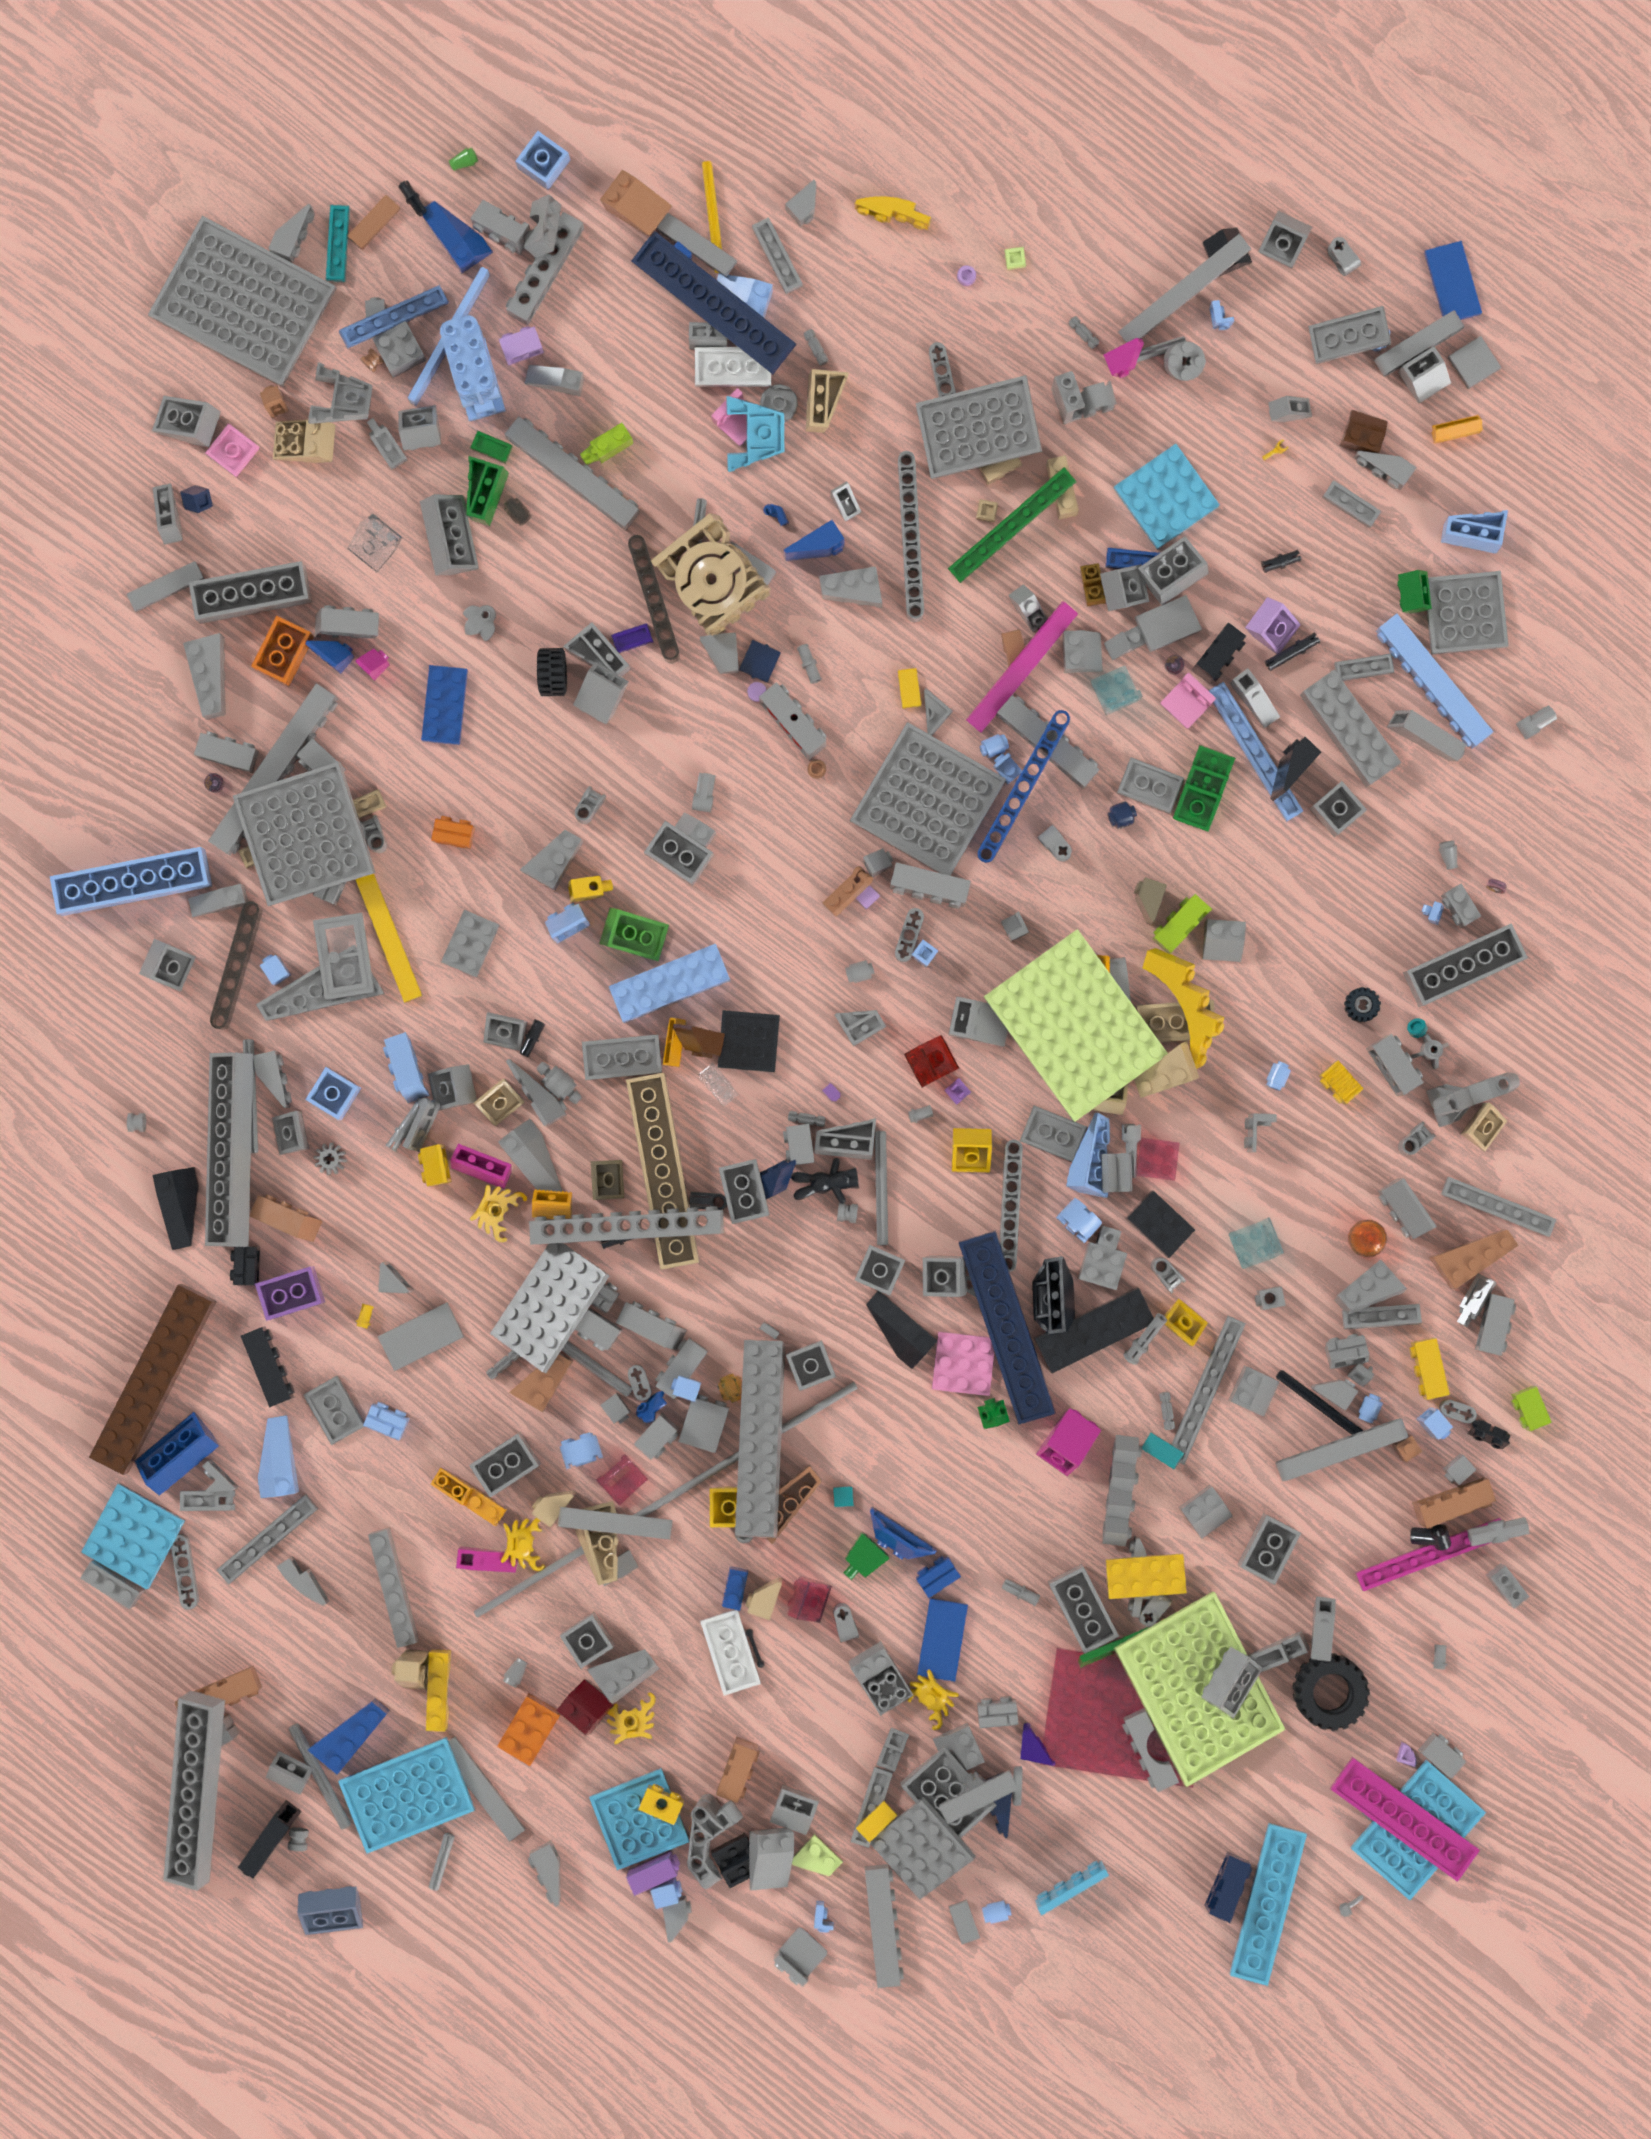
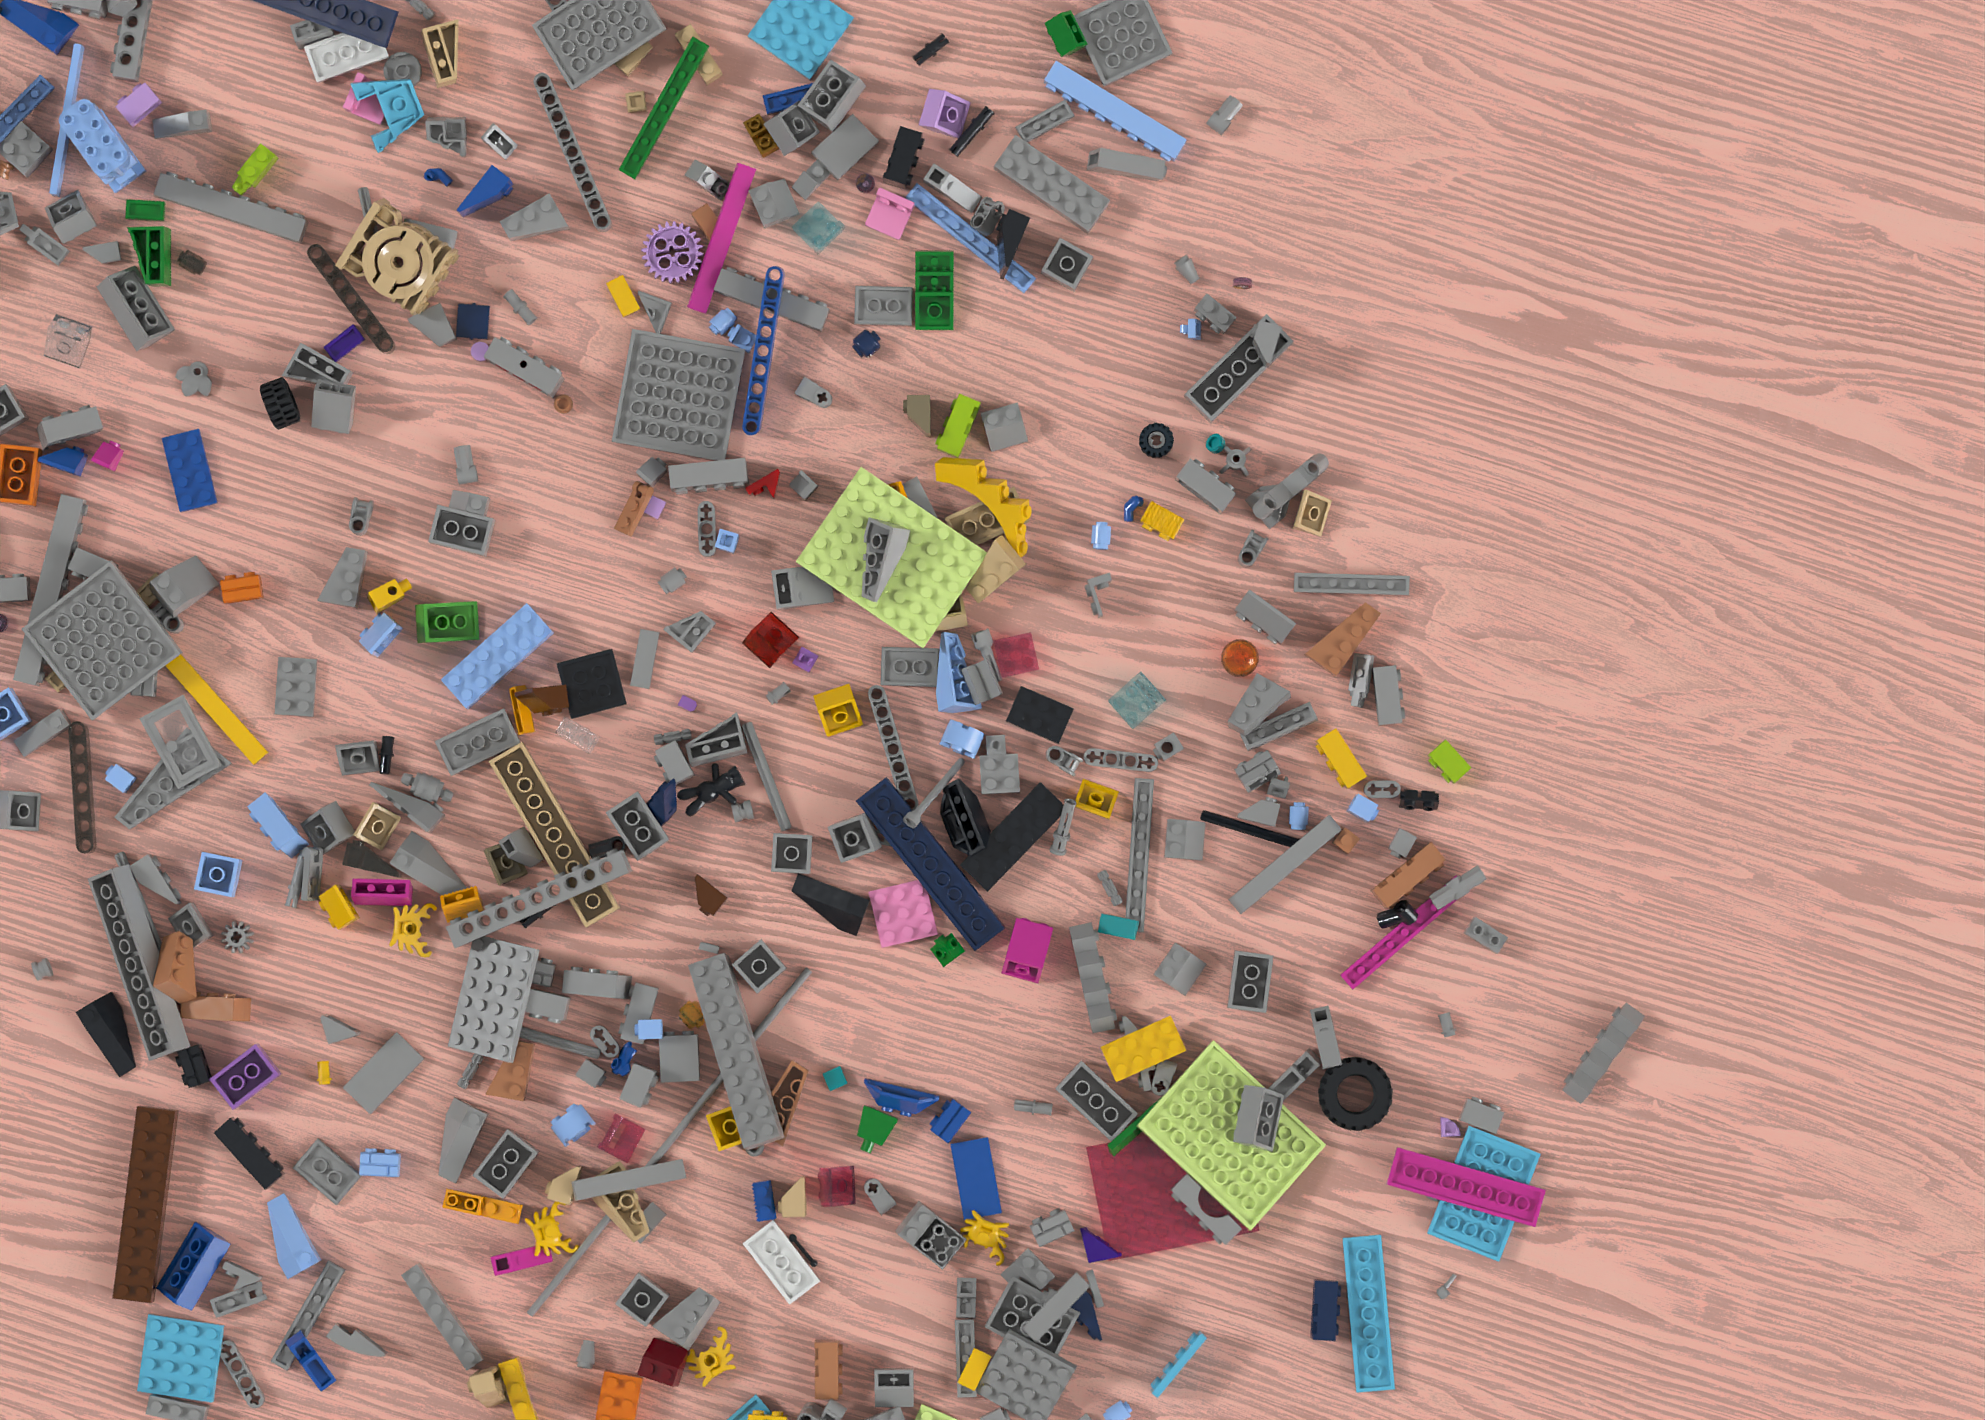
camera: 20 degrees left, 0 degrees up
(253, 1583) = (310, 1361): none -> blue slope
(261, 1168) = (176, 968): none -> nougat wedge
(399, 810) = (183, 585): none -> light grey slope
(439, 473) = (105, 252): none -> light grey tile
(473, 1418) = (460, 1134): none -> light grey wedge
(476, 1128) = (365, 858): none -> clear smoke slope
(627, 1172) = (521, 848): none -> light grey slope
(786, 1282) = (708, 896): none -> reddish brown slope
(800, 476) = (448, 132): none -> light grey slope
(807, 1036) = (644, 659): none -> light grey tile
(972, 646) = (675, 269): none -> lavender gear
(984, 912) = (770, 481): none -> red slope
(1007, 1280) = (913, 818): none -> light grey piece
(1072, 1015) = (883, 551): none -> light grey wedge
(1221, 1292) = (1120, 763): none -> light grey beam
(1279, 736) = (986, 217): none -> light grey piece
(1316, 1057) = (1130, 506): none -> blue arm
(1503, 948) = (1265, 339): none -> light grey slope
(1573, 1741) = (1602, 1053): none -> light grey brick

